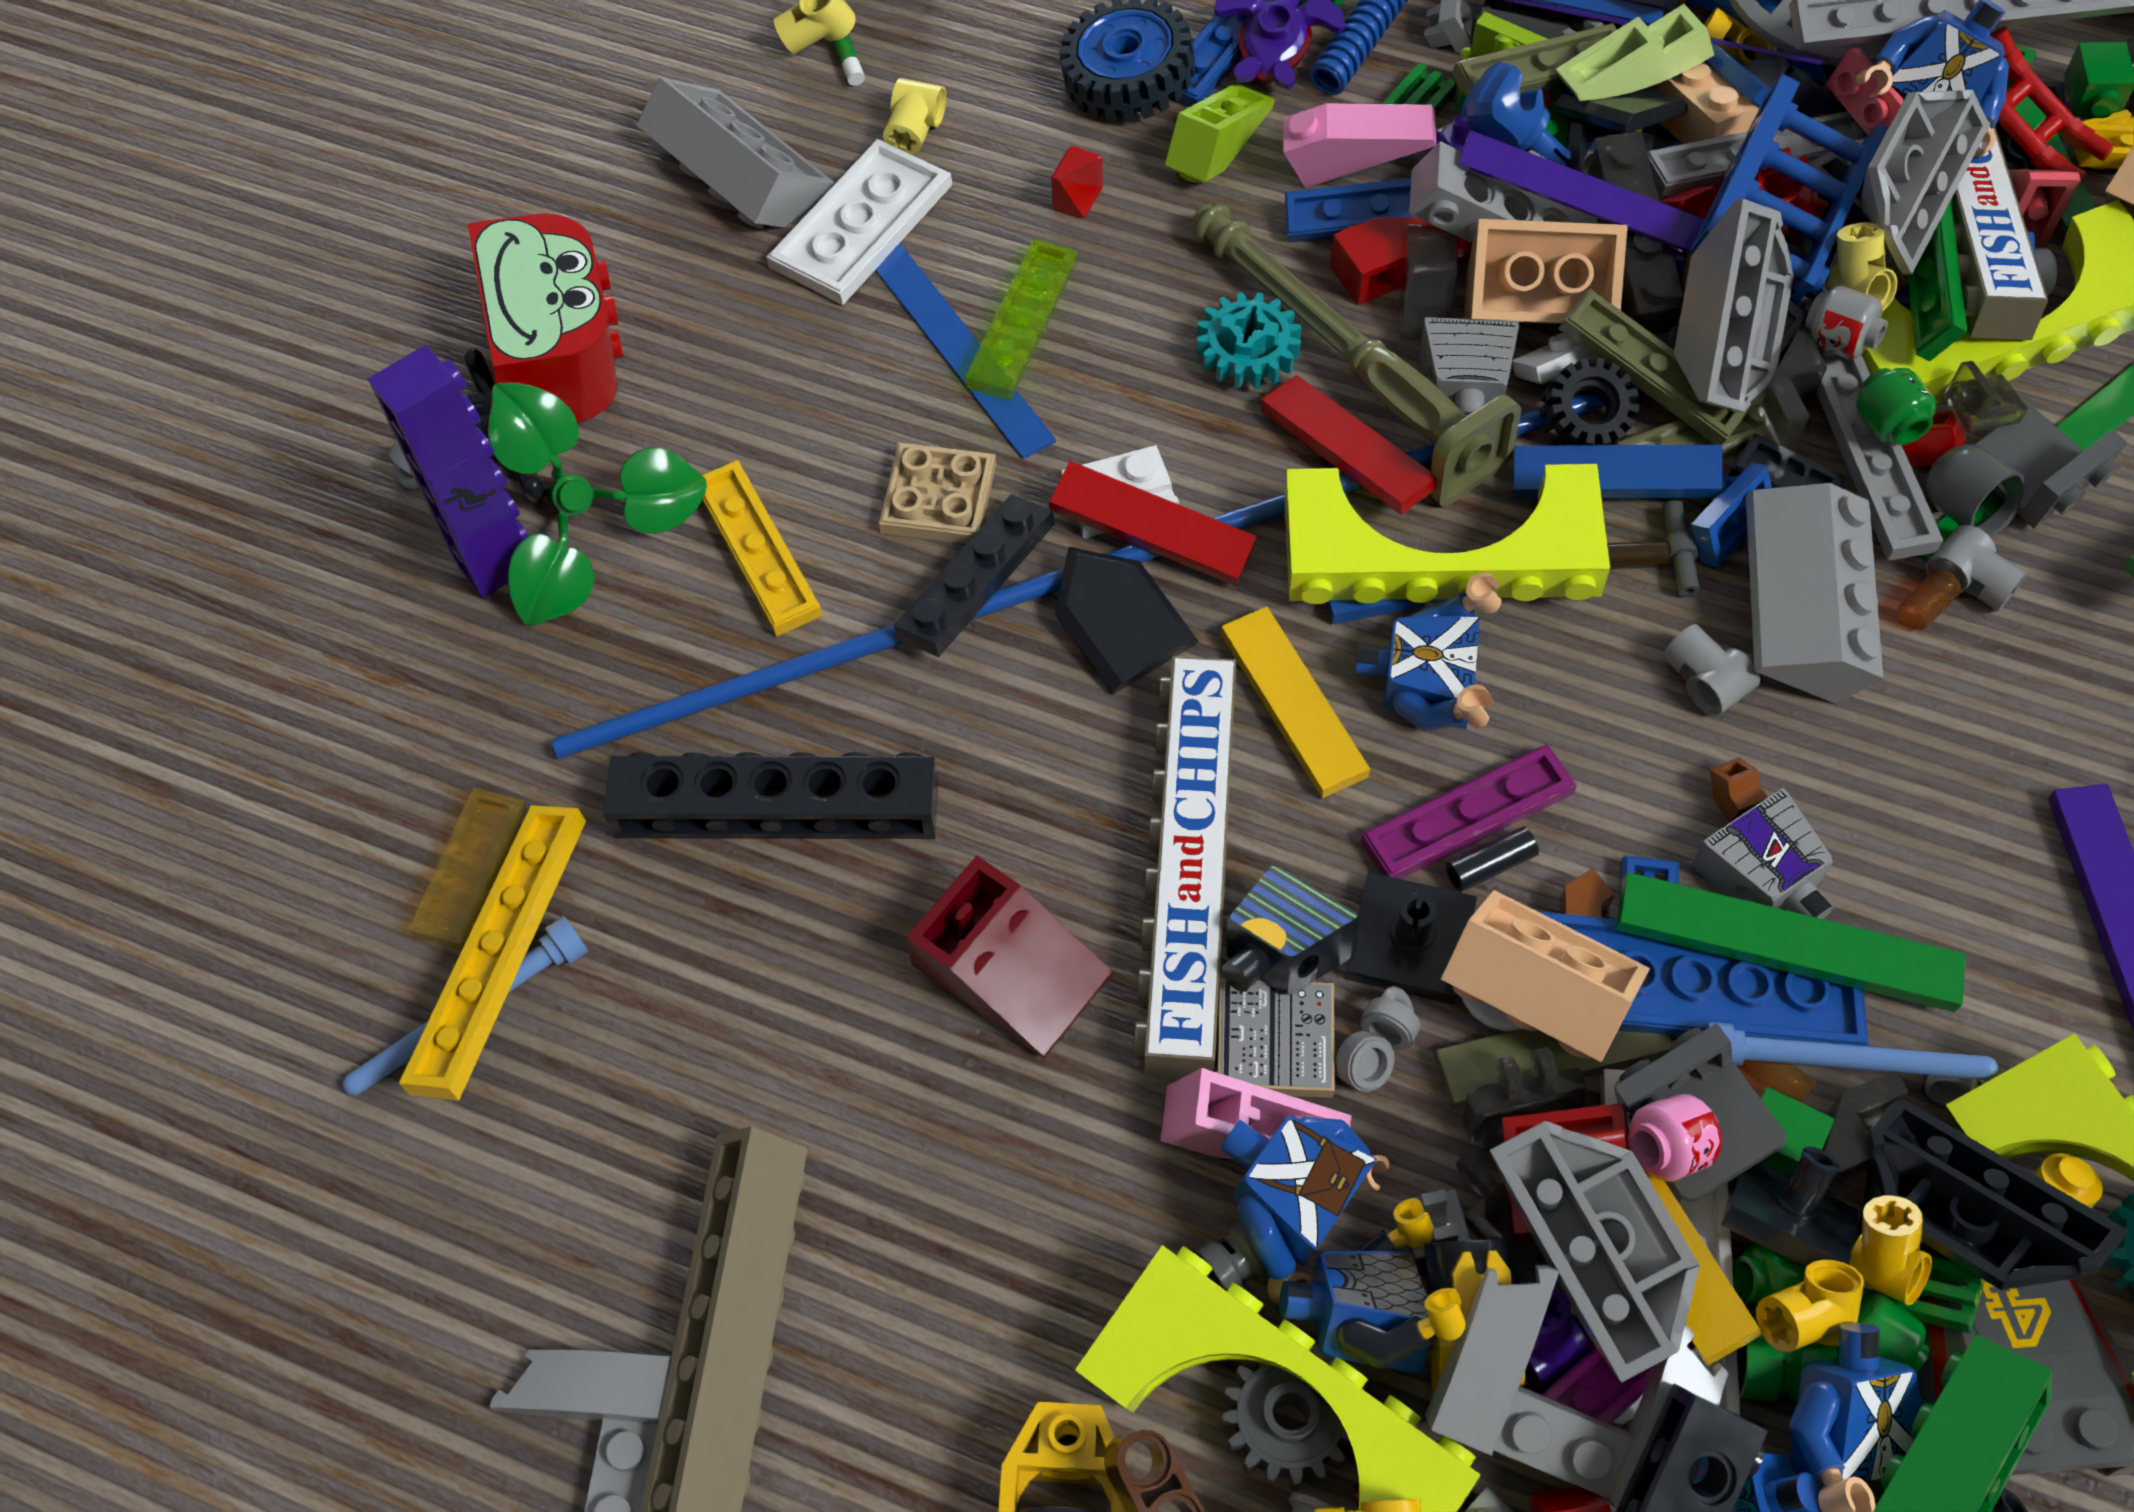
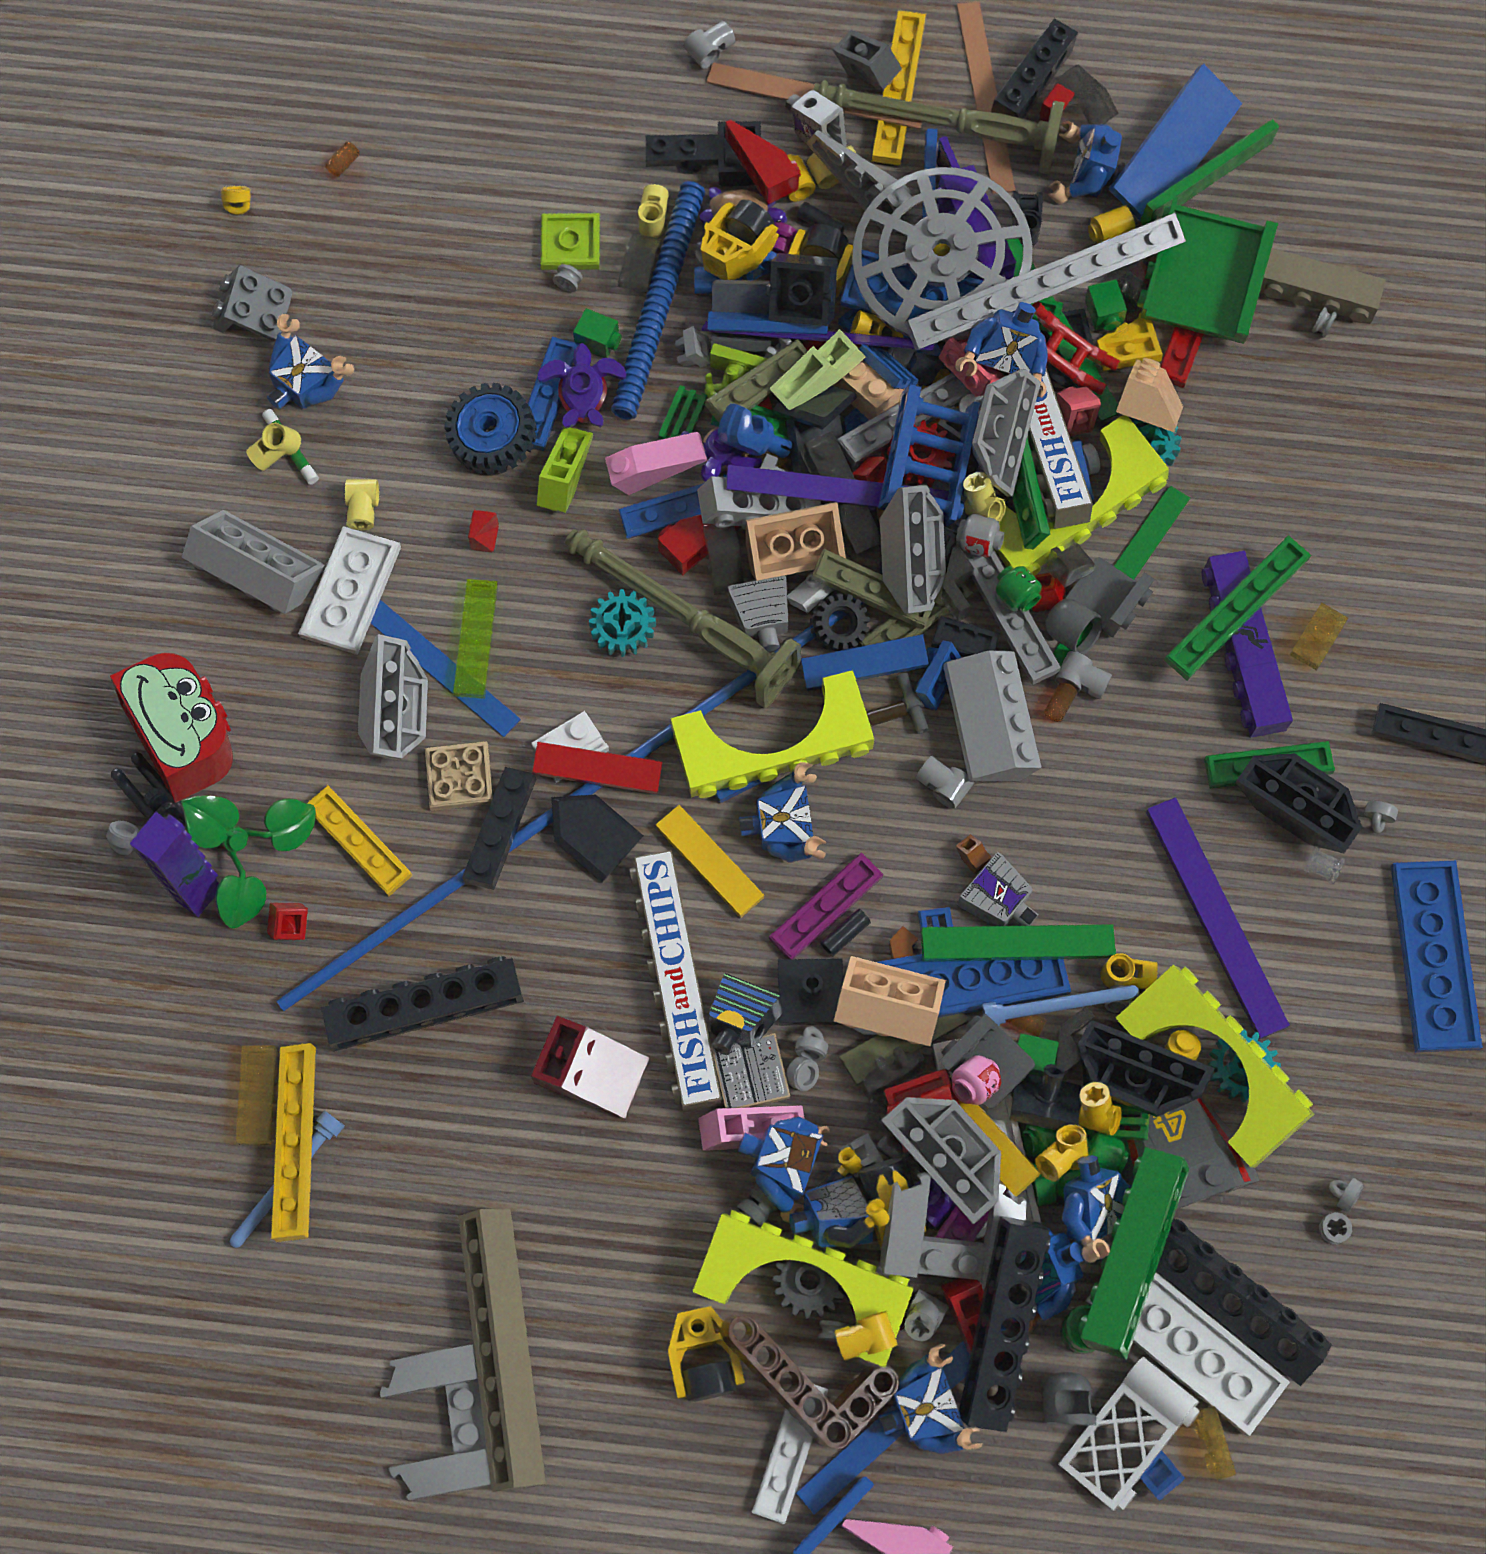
camera: 20 degrees left, 10 degrees up
(610, 631) = (287, 921): none -> red slope
(873, 361) = (392, 699): none -> light grey wedge
(1349, 444) = (700, 682): red tile -> none
(1978, 1024) = (1146, 972): none -> yellow piece

